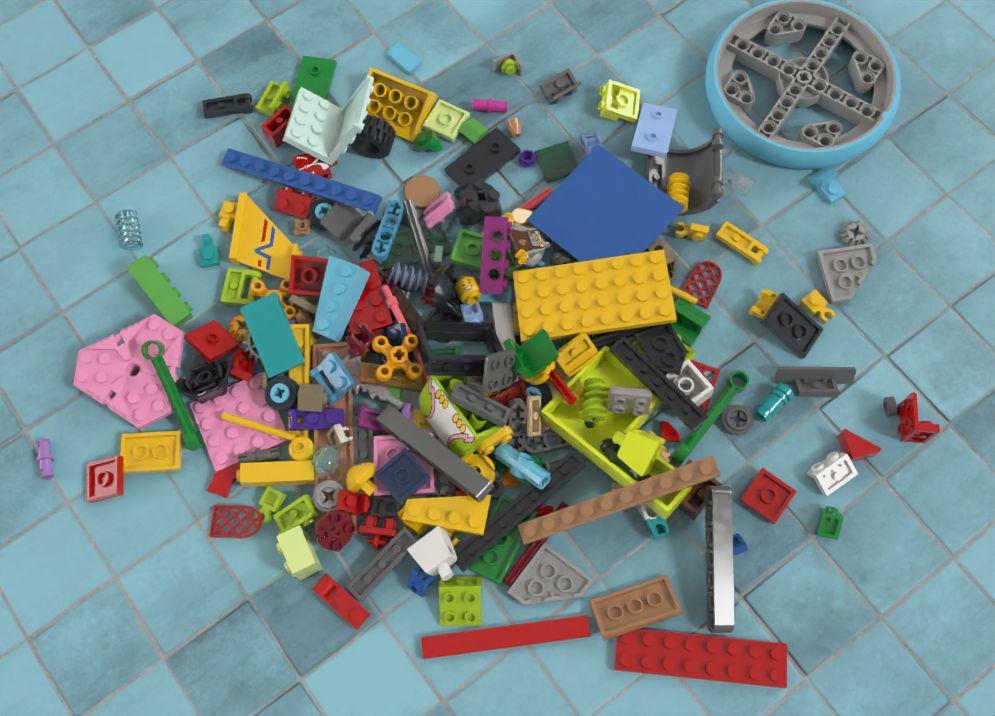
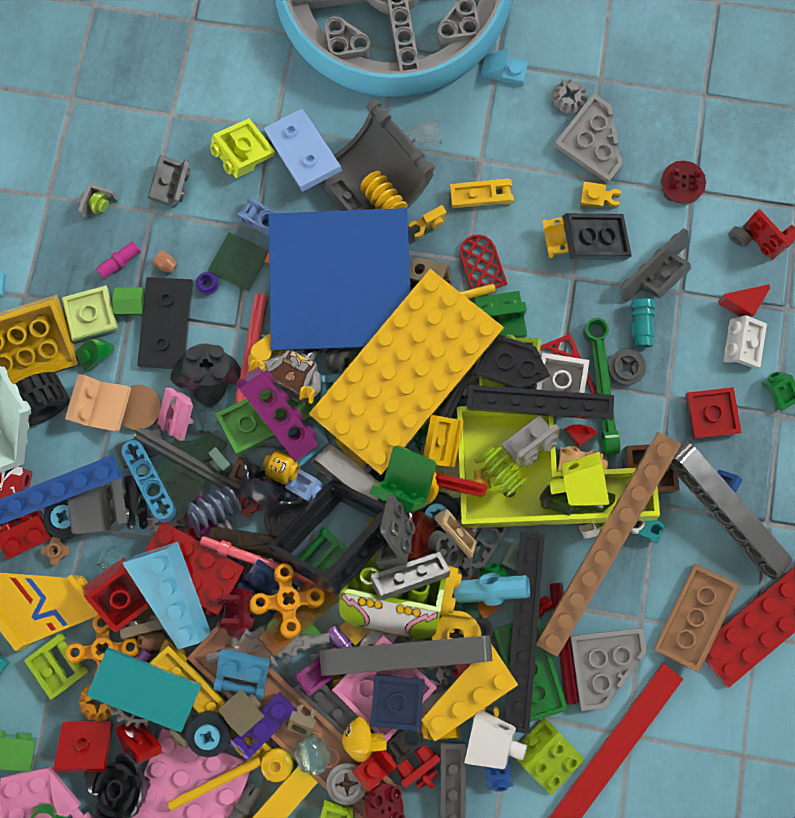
camera: 45 degrees left, 10 degrees up
(401, 168) = (98, 403): none -> light nougat bracket
(876, 336) = (672, 182): none -> dark red plate

